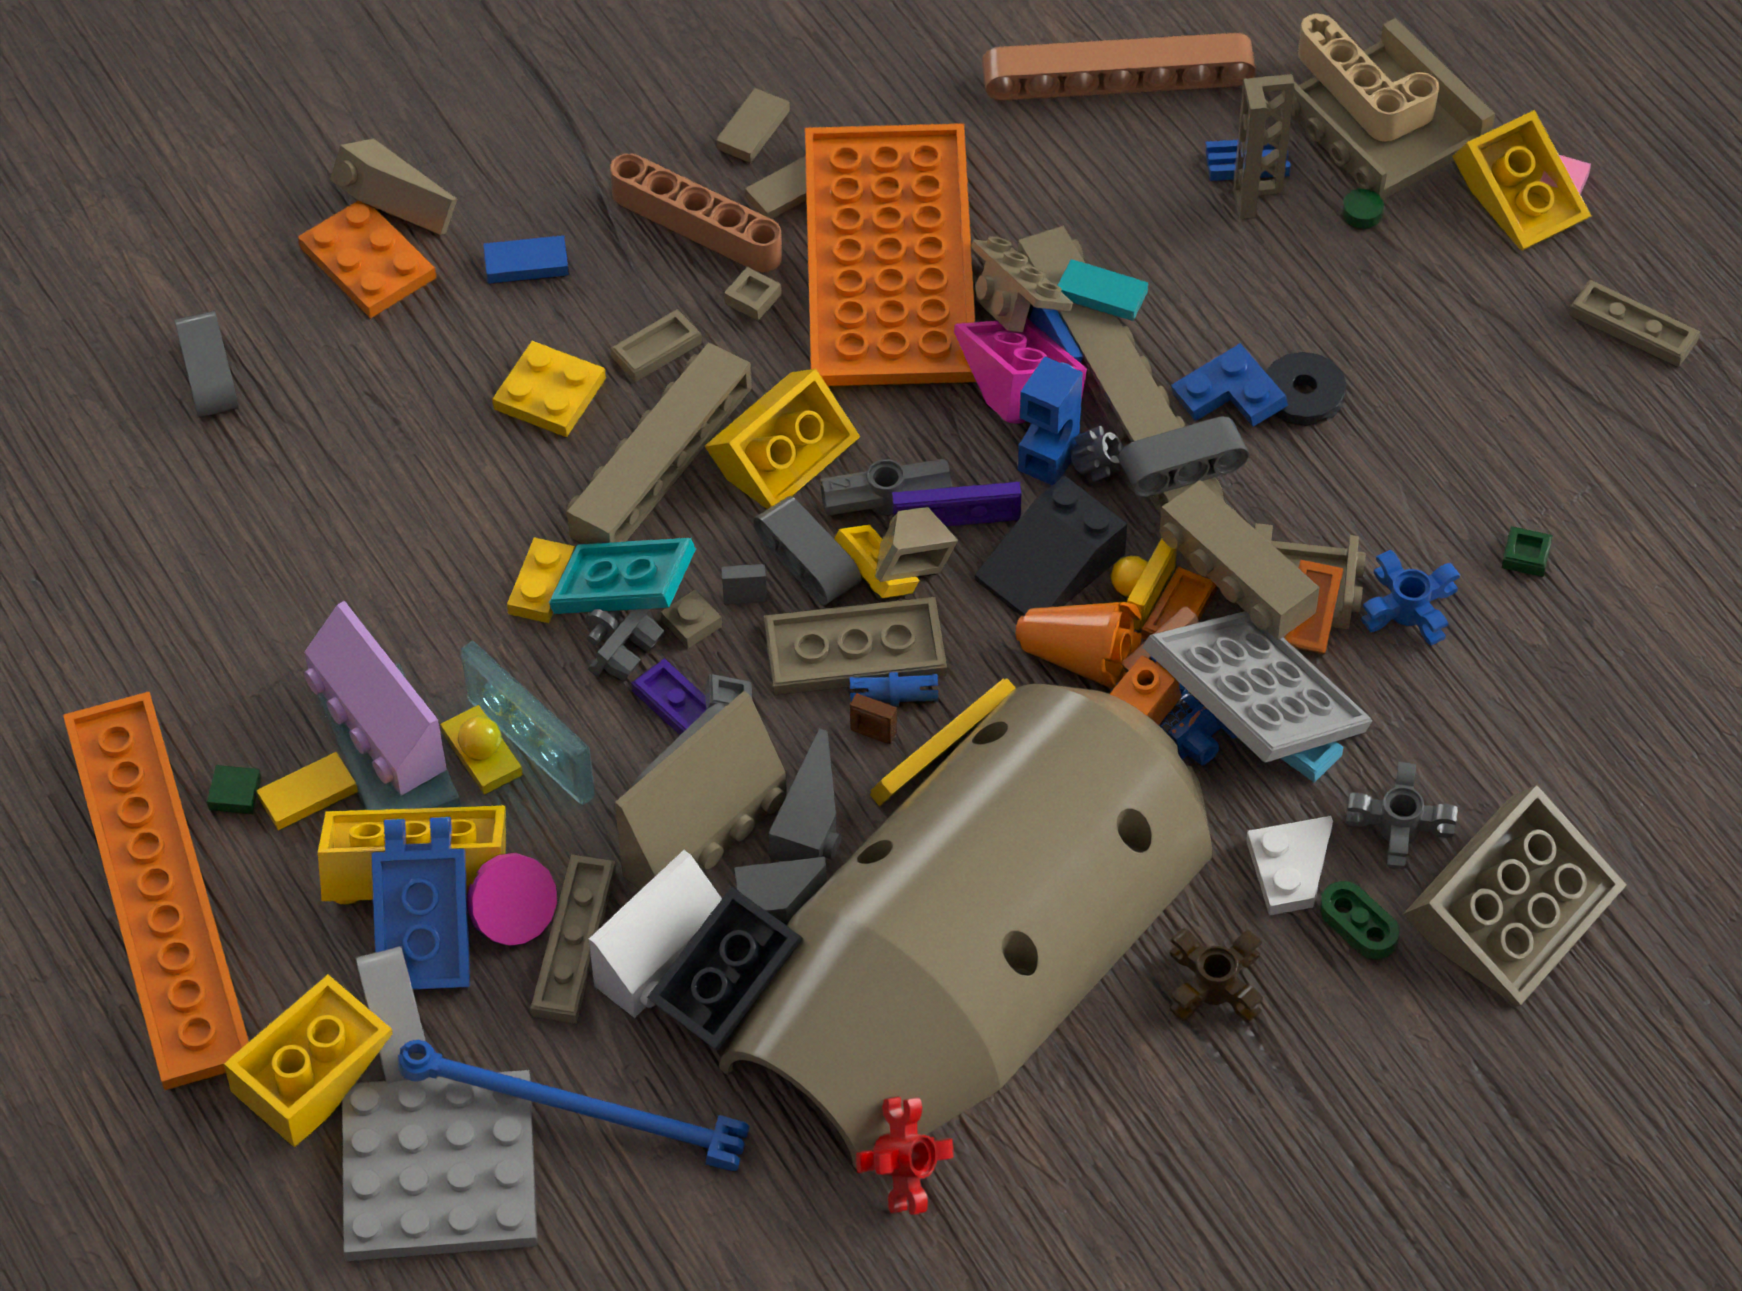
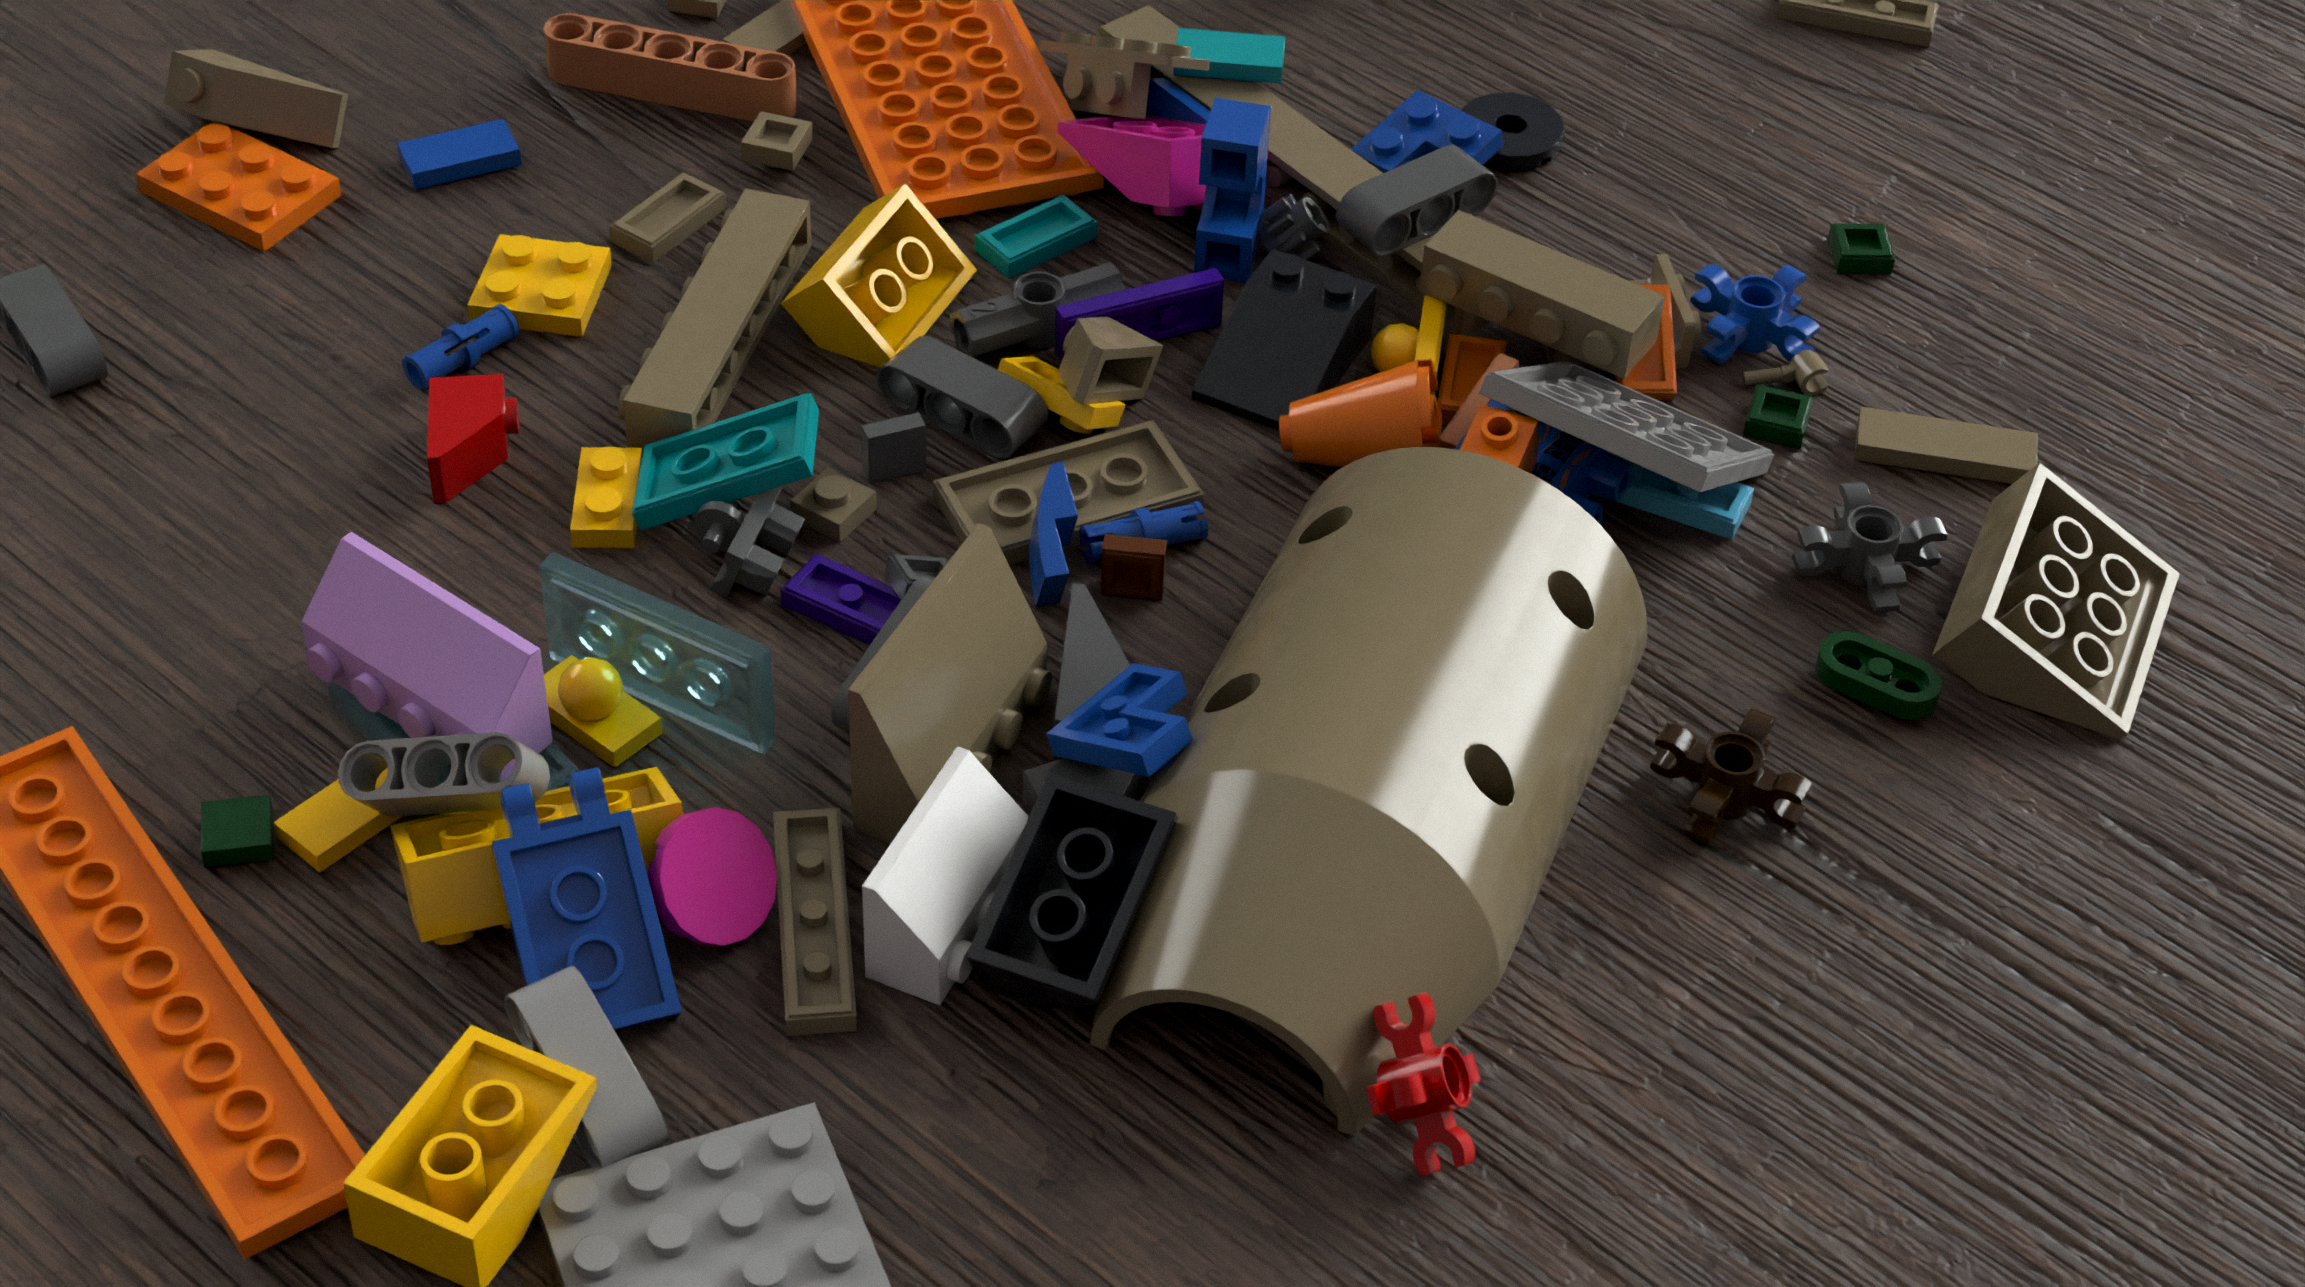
camera: 20 degrees left, 10 degrees down
(345, 783) = (416, 766): none -> light grey beam
(460, 509) = (467, 431): none -> red slope
(504, 423) = (489, 329): none -> blue pin
(722, 1141) = (1138, 1134): blue hinge -> none
(799, 852) = (1127, 723): none -> blue plate
(824, 675) = (1050, 531): none -> blue slope
(913, 415) = (1036, 236): none -> teal tile
(940, 742) = (1237, 577): yellow tile -> none
(1290, 862) = (1751, 631): white wing -> none
(1393, 687) = (1778, 416): none -> dark green tile
(1429, 652) = (1804, 369): none -> dark tan hand
(1505, 740) = (1944, 445): none -> dark tan tile

